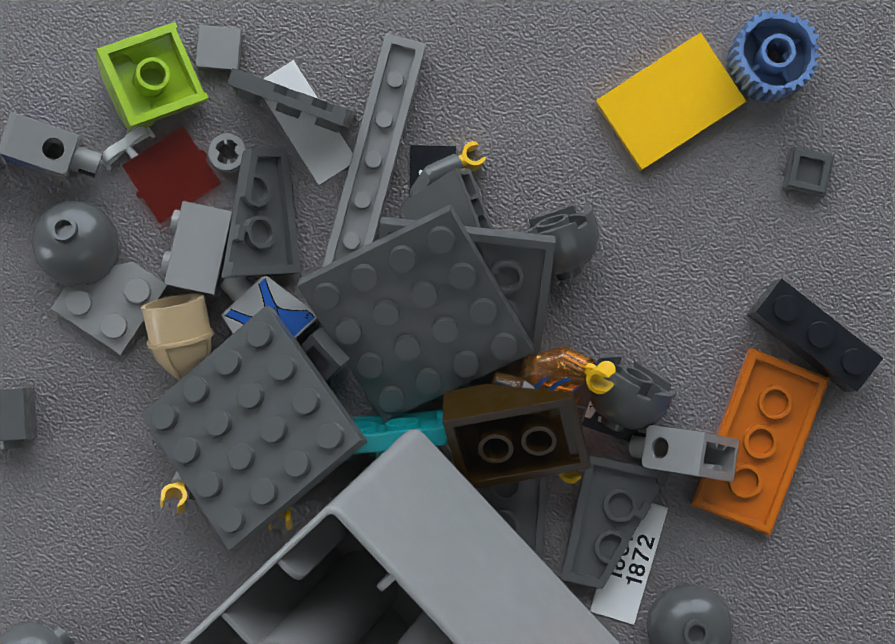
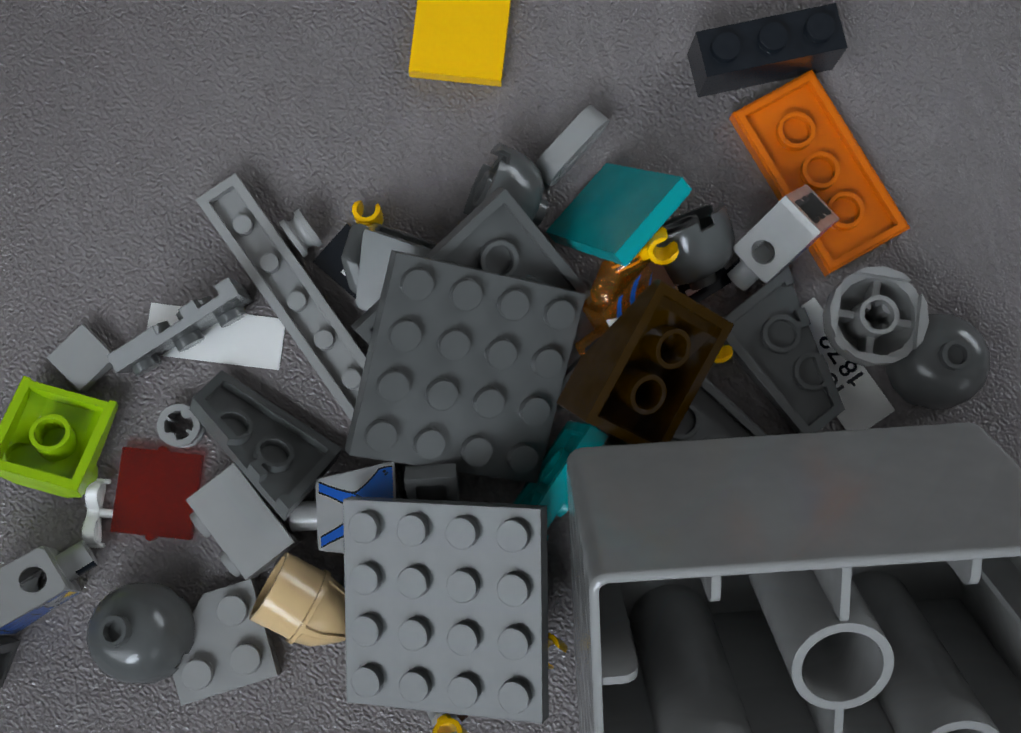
camera: 50 degrees left, 5 degrees down
(421, 122) = (300, 233): none -> light grey bush
(607, 328) = (619, 212): none -> teal tile
(635, 255) = (571, 144): none -> light grey beam
(690, 575) = (875, 317): none -> light grey cylinder

